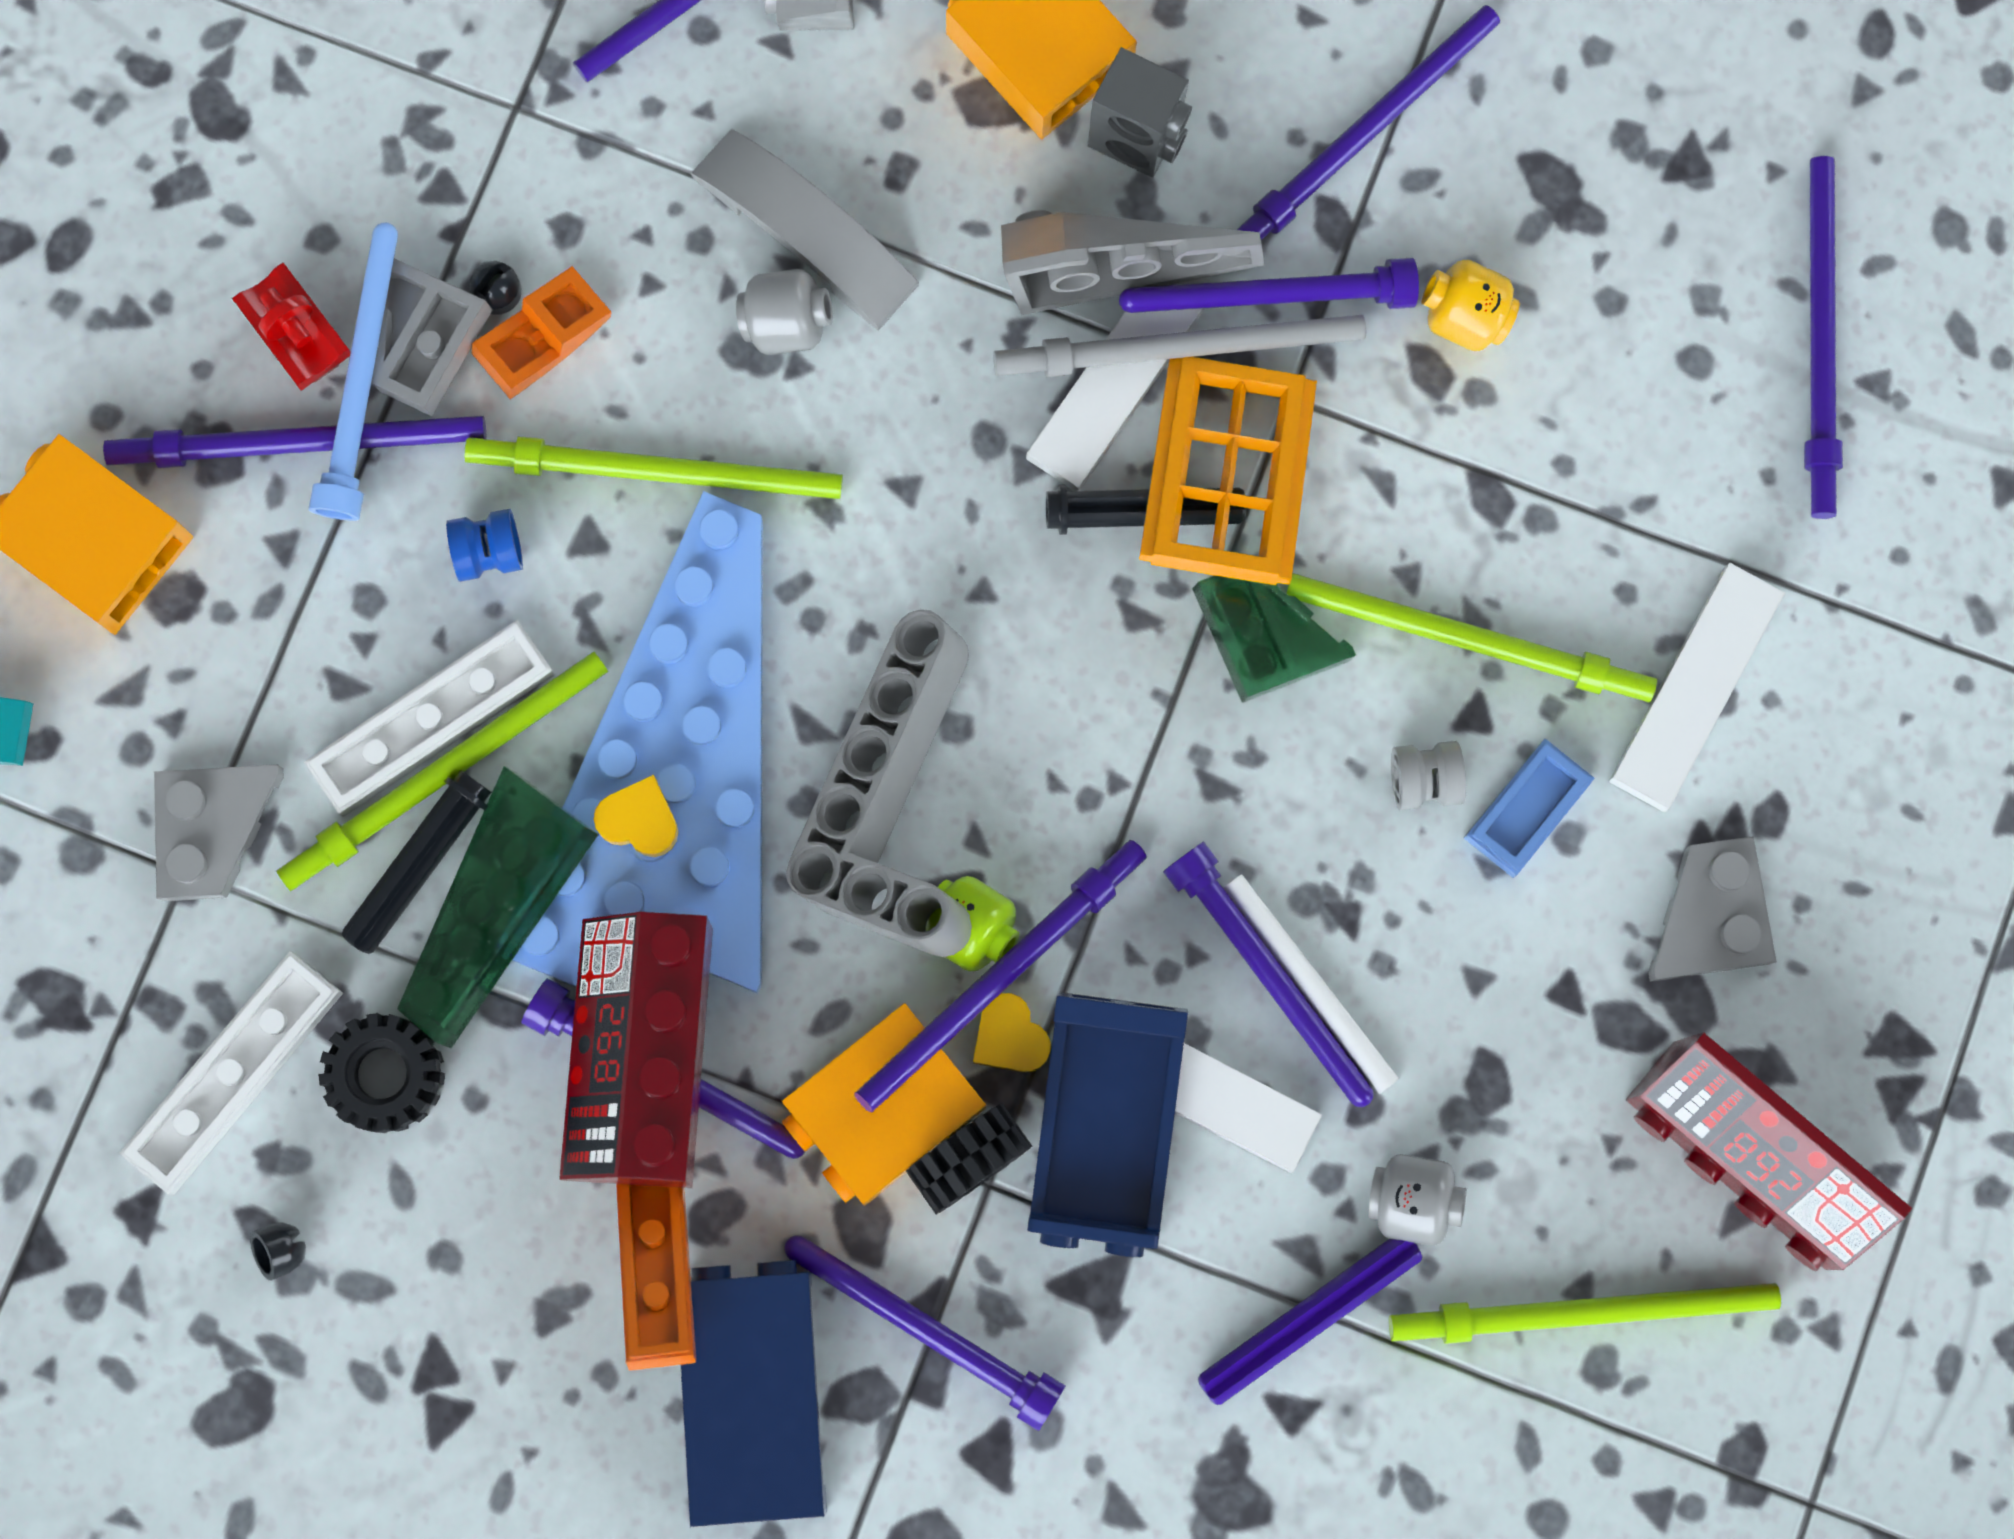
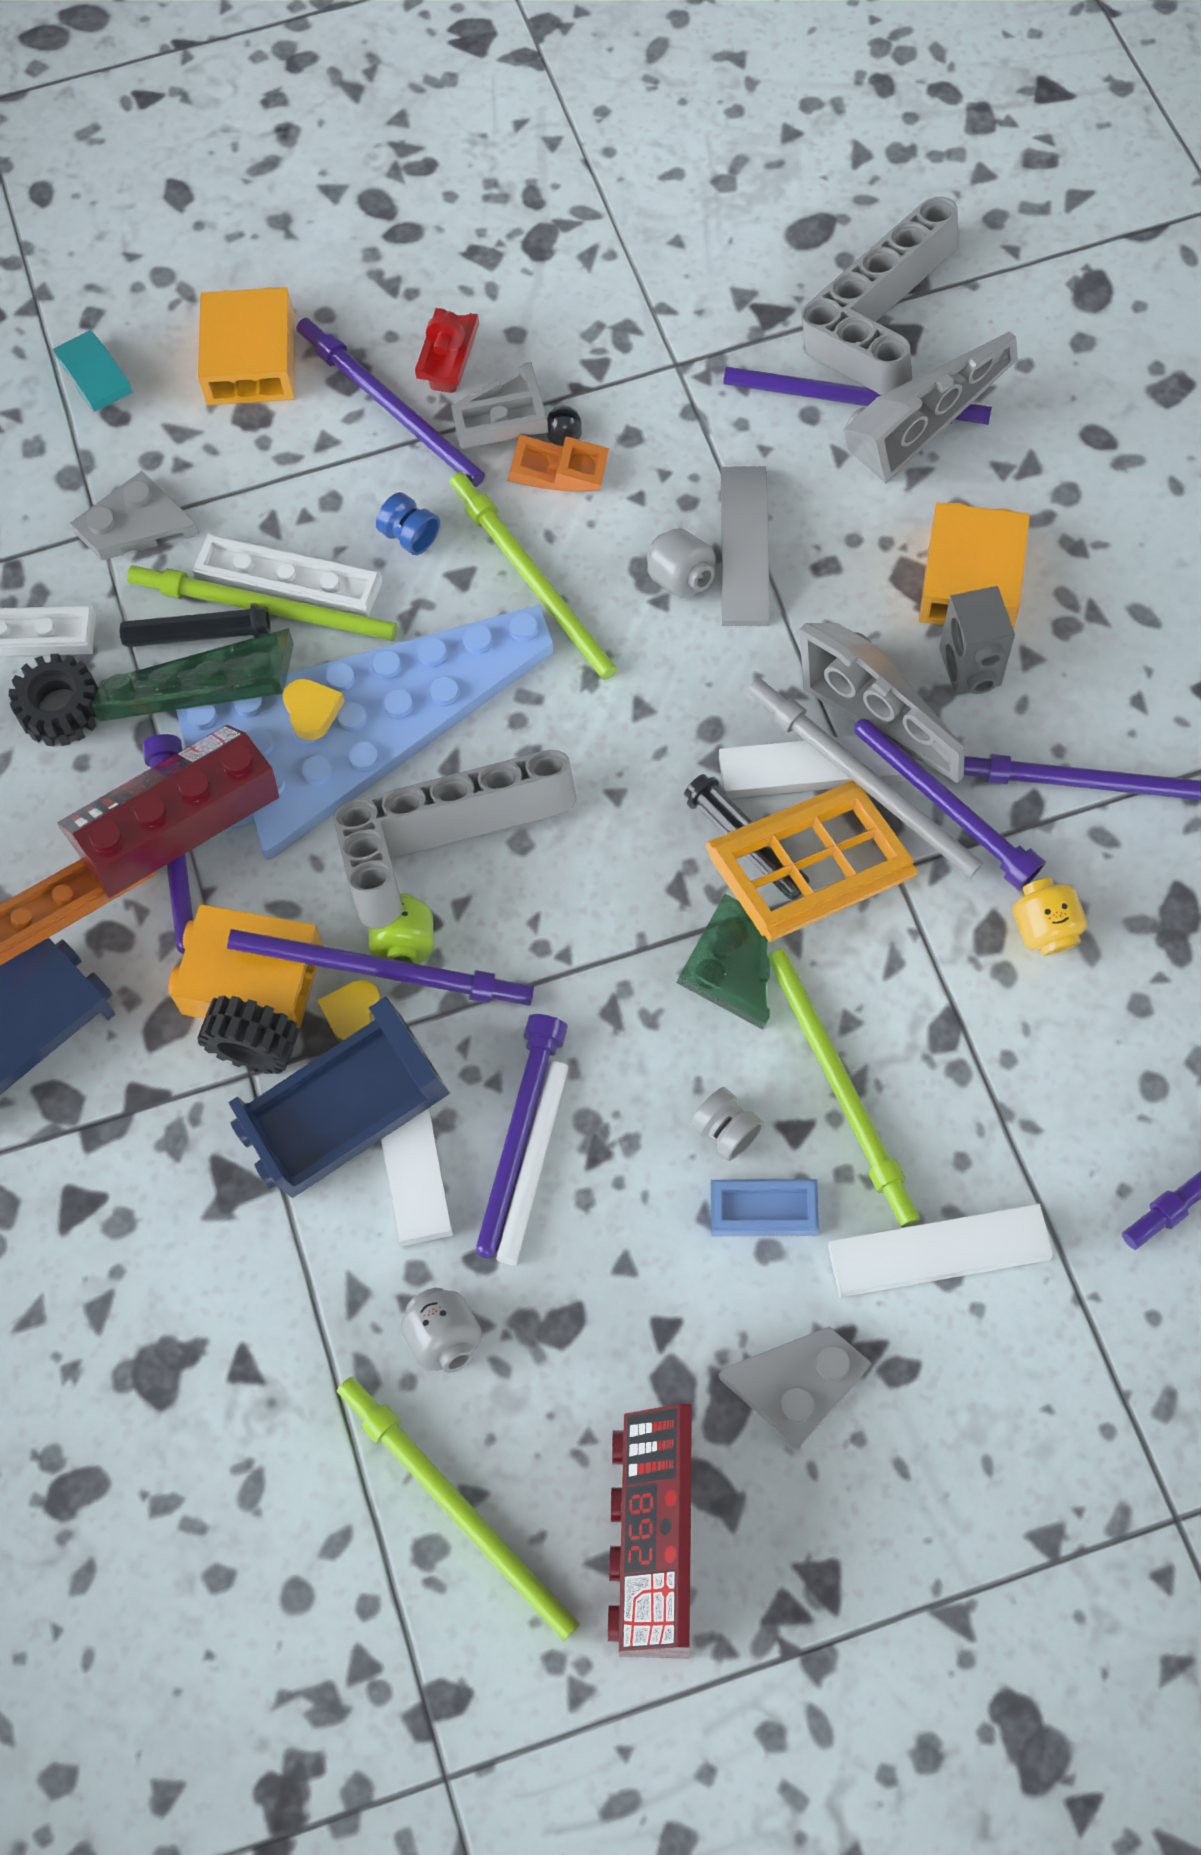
camera: 60 degrees right, 15 degrees down
(338, 489) = (374, 433): light blue piece -> none
(1030, 1394) = (130, 1195): dark purple piece -> none
(1308, 1319) = (311, 1327): dark purple axle -> none

